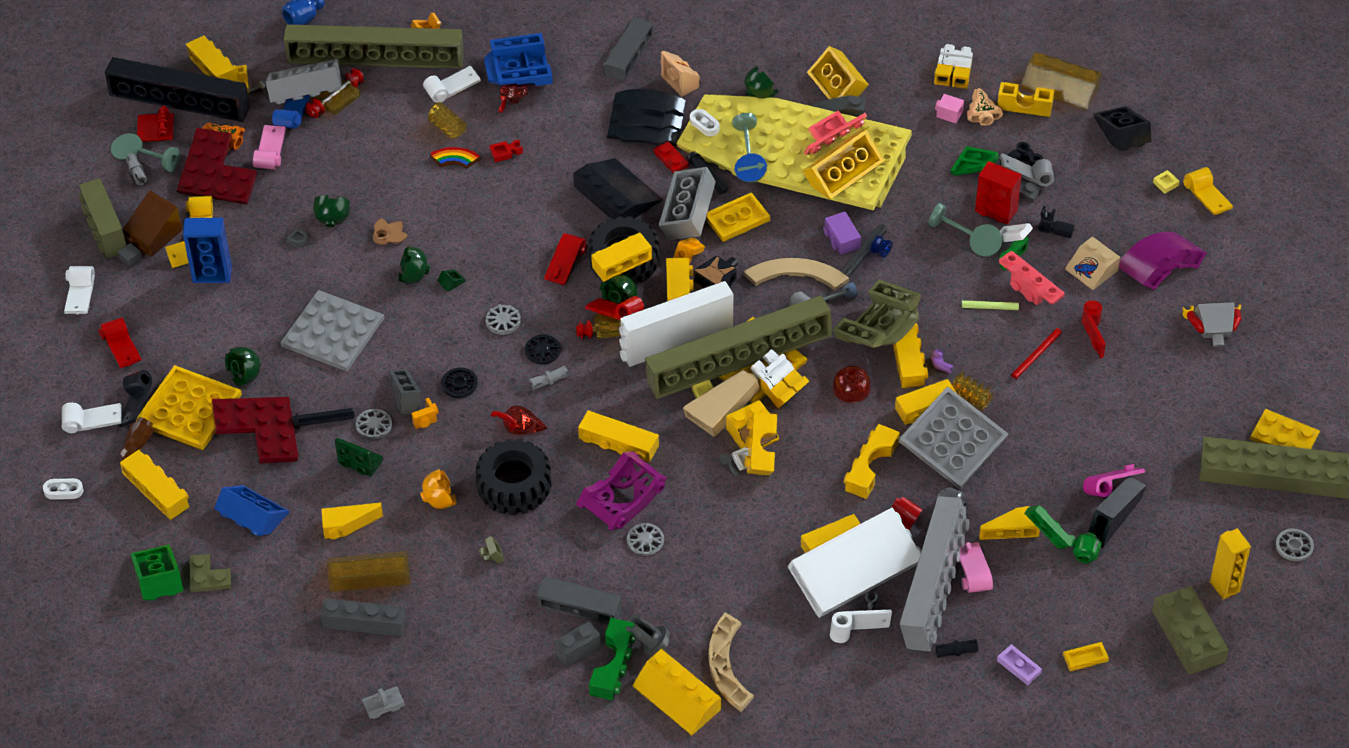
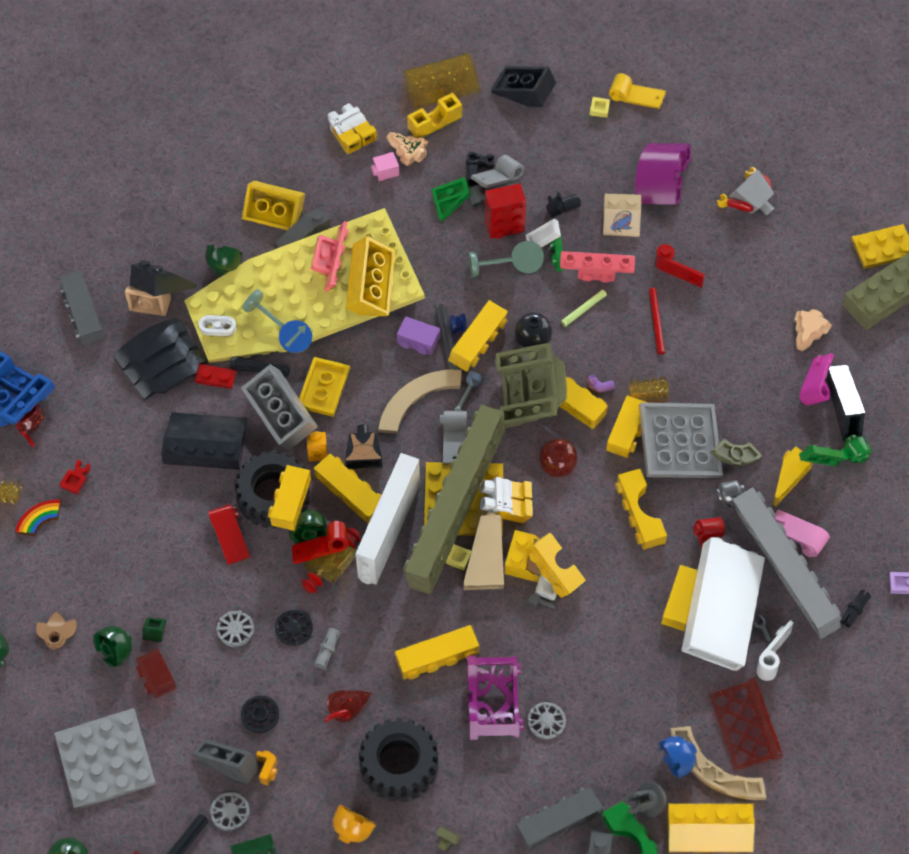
camera: 45 degrees left, 10 degrees up
(419, 304) = (156, 673): none -> clear red brick
(690, 59) = (156, 280): none -> black slope
(706, 627) = (678, 755): none -> blue cylinder
(799, 657) = (763, 719): none -> clear red fence
(884, 262) = (478, 336): none -> yellow brick
(934, 291) = (533, 330): none -> black cylinder
(987, 480) = (736, 454): none -> olive tile
(1151, 443) = (810, 327): none -> light nougat rock

